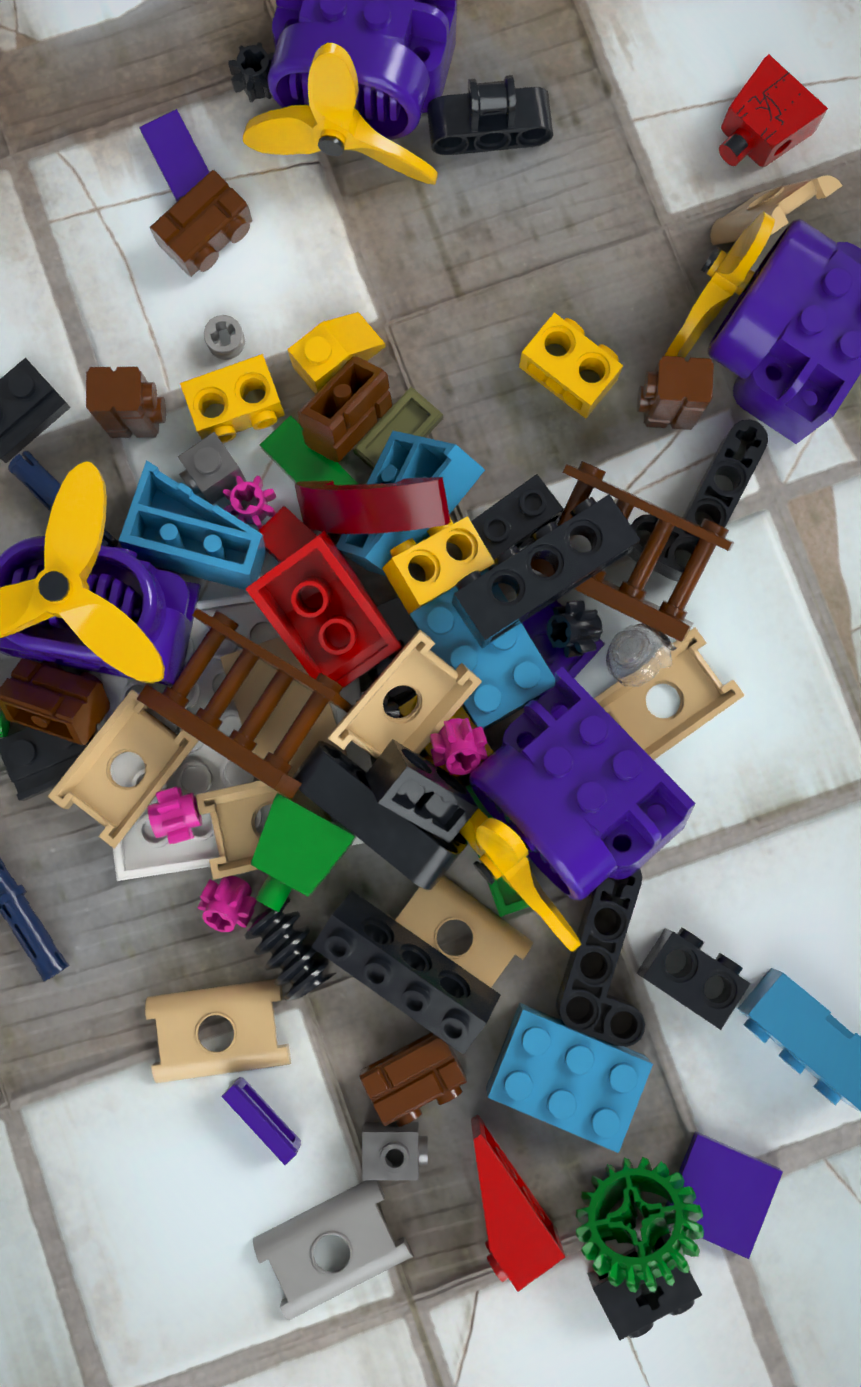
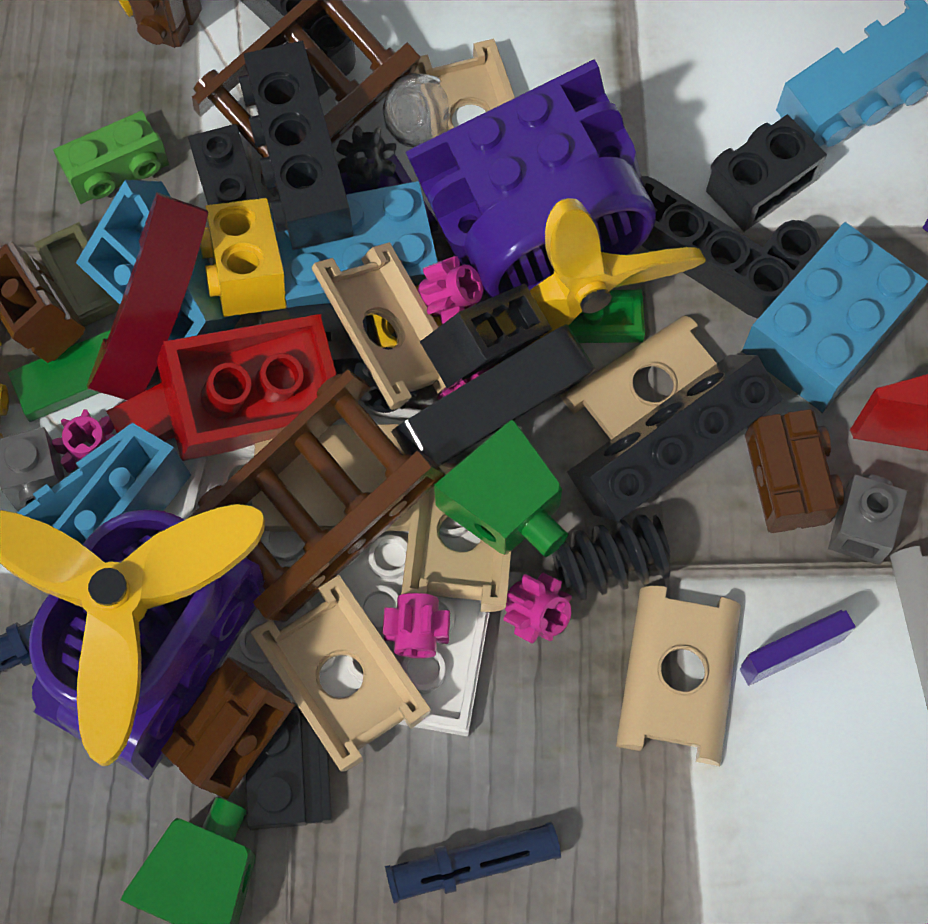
camera: 75 degrees left, 15 degrees down
(513, 415) = (110, 156): none -> bright green bracket
(562, 372) = (87, 89): yellow brick -> none

